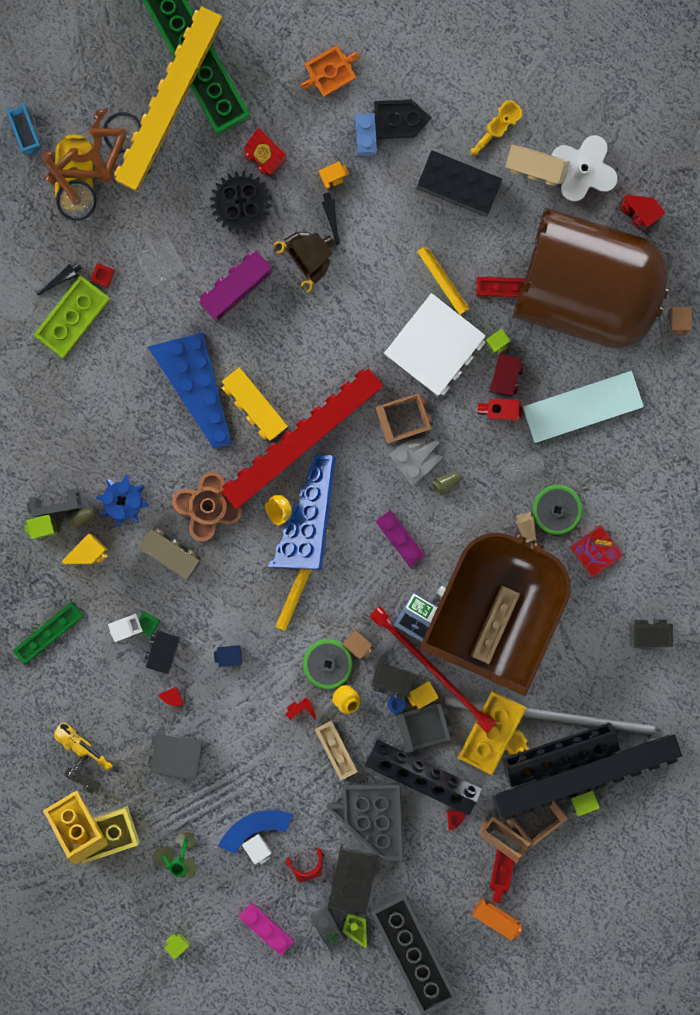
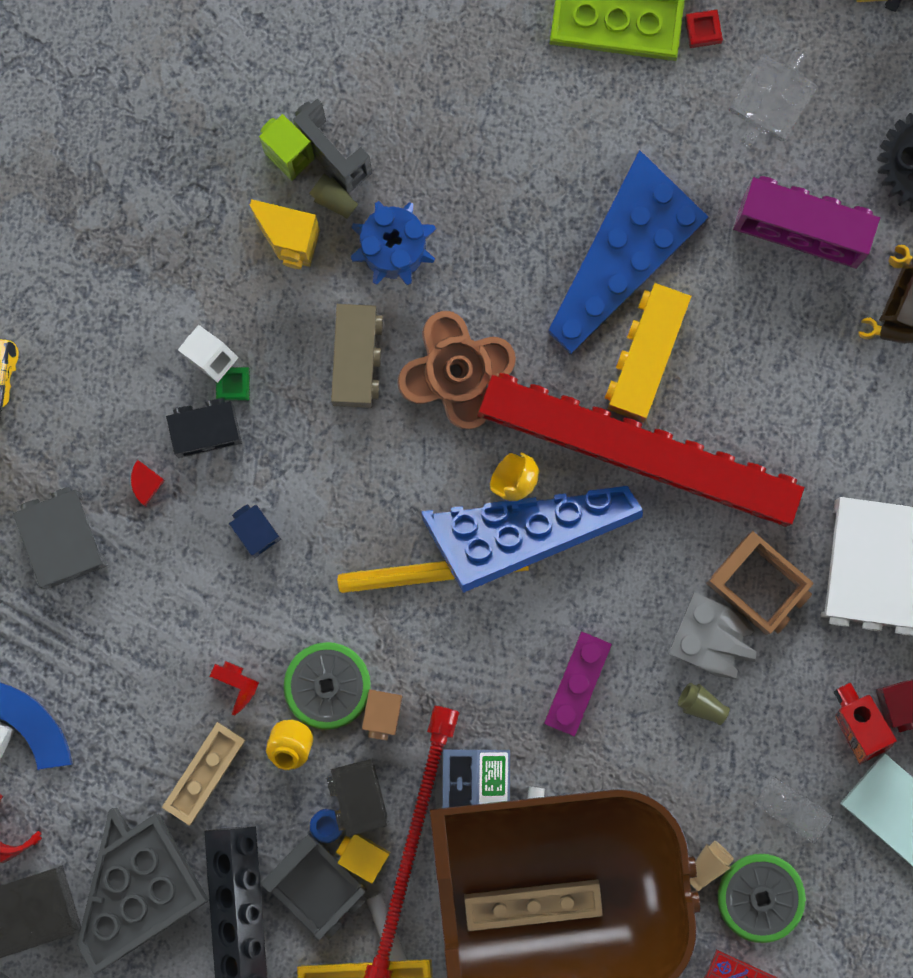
camera: 65 degrees right, 5 degrees down
(48, 633) = (136, 249): green tile -> none

